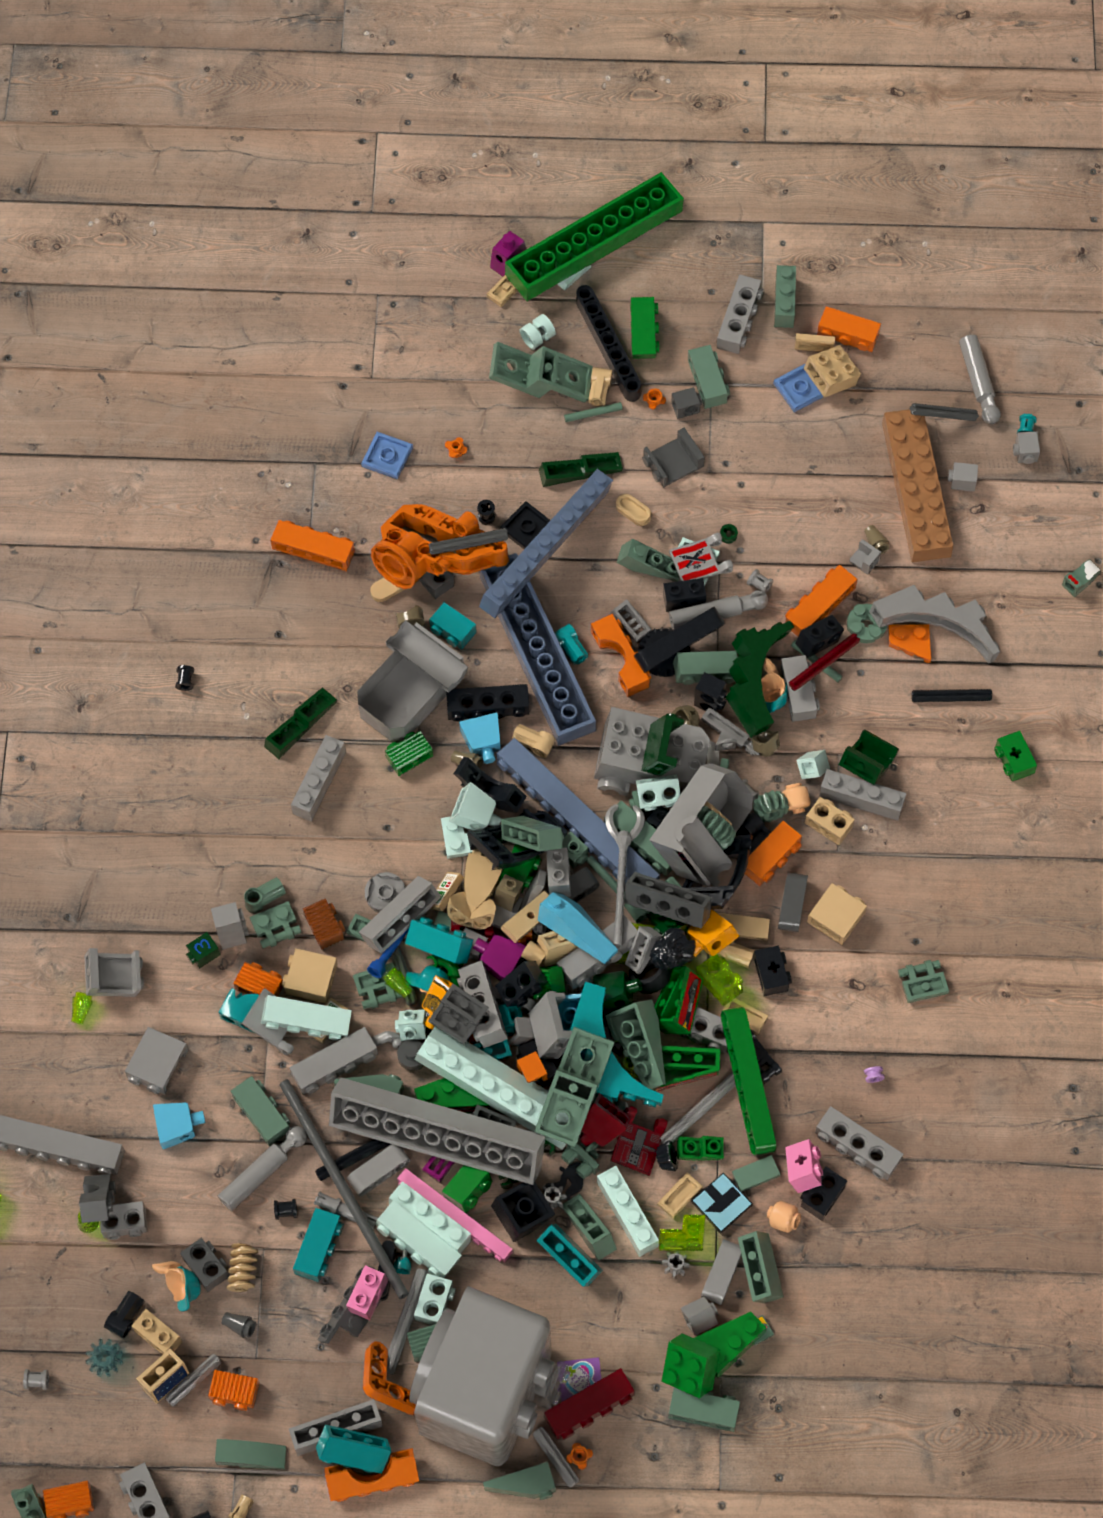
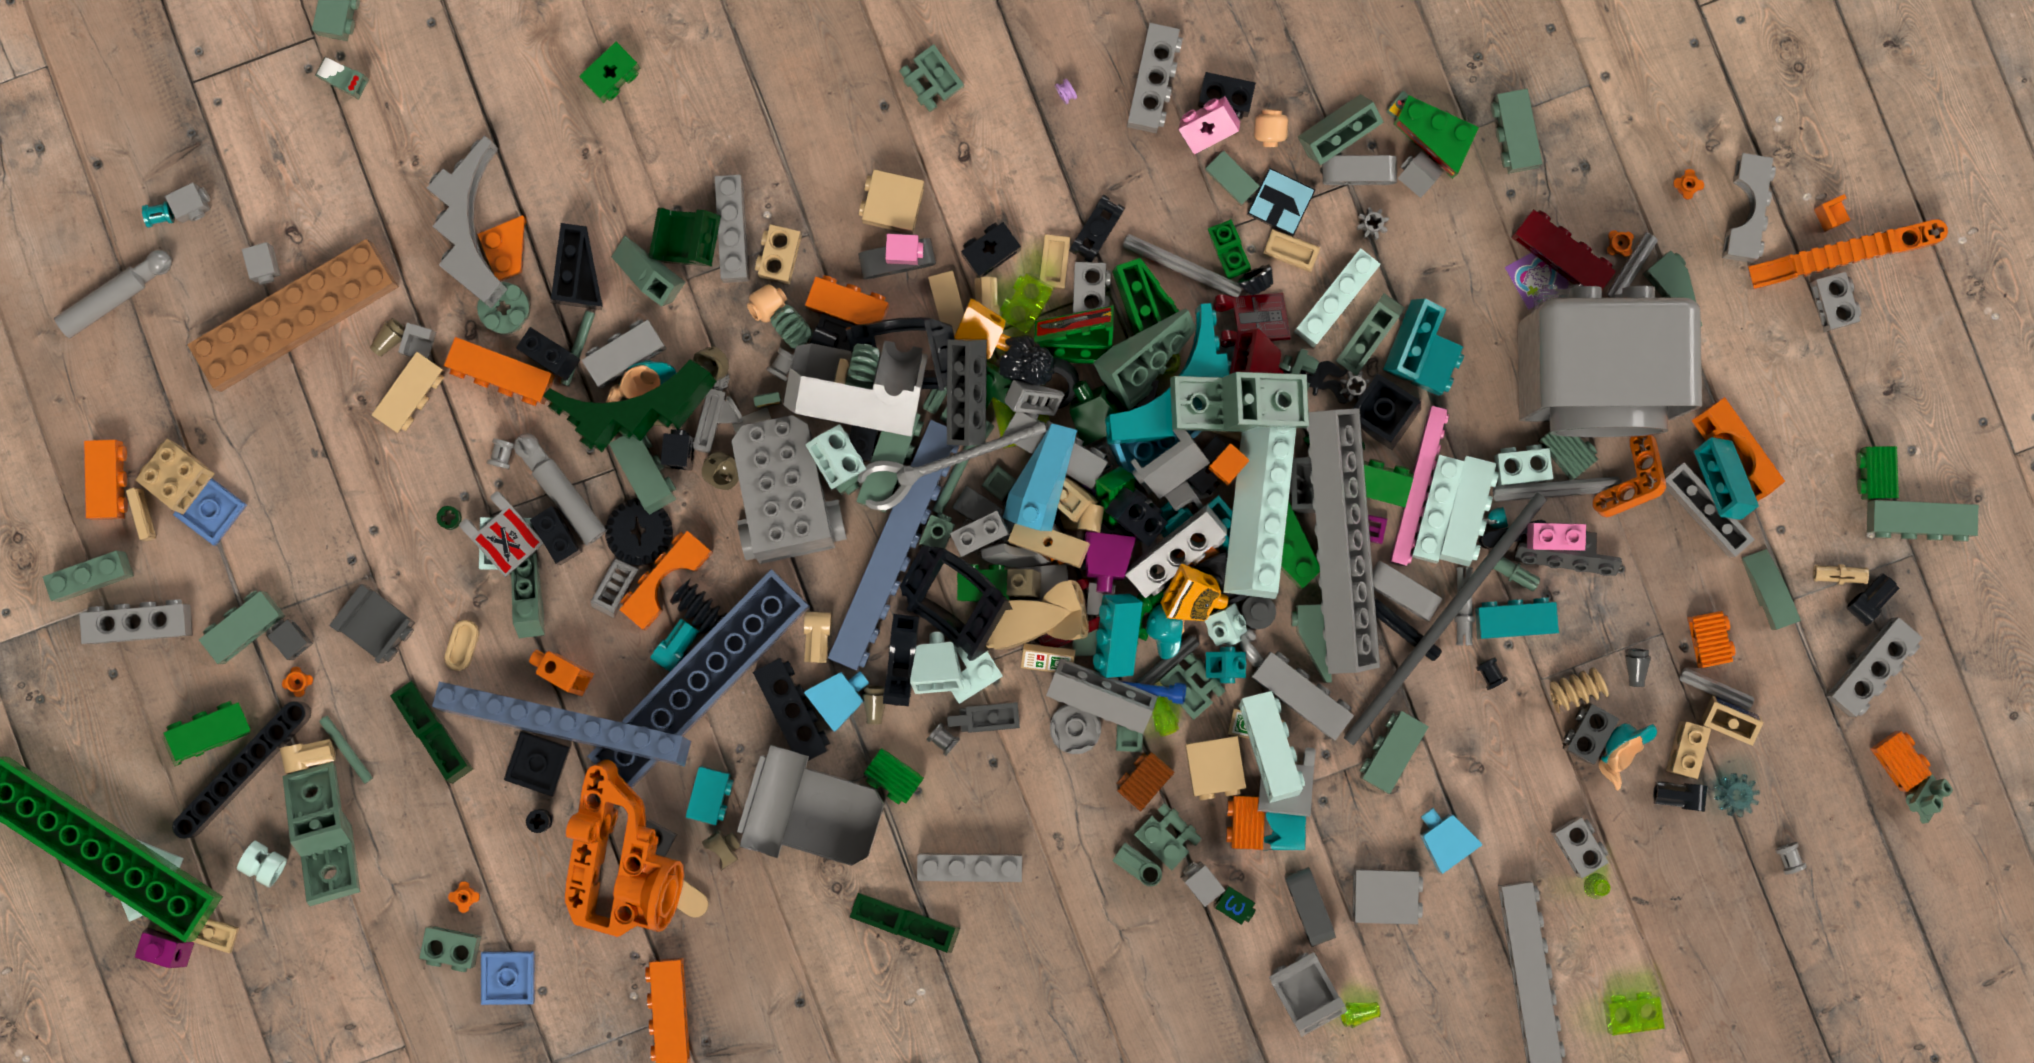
camera: 115 degrees left, 20 degrees up
(97, 1198) = (1592, 875): dark grey arch -> none
(175, 1003) = (1310, 907): none -> dark grey beam
(261, 1169) = (1458, 720): light grey piece -> none
(354, 1260) = (1517, 574): none -> sand green axle
(363, 956) = (1164, 718): none -> clear neon green cone
(382, 1013) = (1226, 664): none -> teal brick
(397, 982) = (1184, 663): clear neon green cone -> none
(419, 797) = (943, 739): none -> flat silver bush
(421, 832) = (986, 718): none -> dark grey hinge
(428, 427) = (451, 941): none -> sand green brick
(458, 1014) = (1211, 567): dark grey slope -> none
(468, 541) = (605, 814): dark grey axle -> none
(532, 833) = (951, 580): sand green brick -> none
(541, 1268) = (1439, 366): none -> teal brick
(583, 562) = (561, 672): none -> orange torso
(592, 666) = (697, 607): none -> black piece
(594, 909) = (999, 483): none -> sand green tile
(655, 756) = (784, 474): dark green panel -> none
(679, 639) = (624, 514): black beam -> none
(685, 1239) = (1342, 218): clear neon green plate -> none
(690, 1365) = (1484, 158): green brick -> none
(748, 1081) = (1135, 223): green beam -> none
(796, 901) = (903, 249): none -> bright pink brick
(813, 764) = (715, 300): light aqua panel -> none
(824, 662) = (581, 334): dark red axle -> none
(829, 537) = (408, 393): none -> tan brick
(848, 725) = (647, 273): none -> sand green slope
(874, 676) = (575, 273): none -> black wedge
(944, 412) = (182, 317): dark grey axle -> none
(951, 695) = (559, 175): black axle -> none

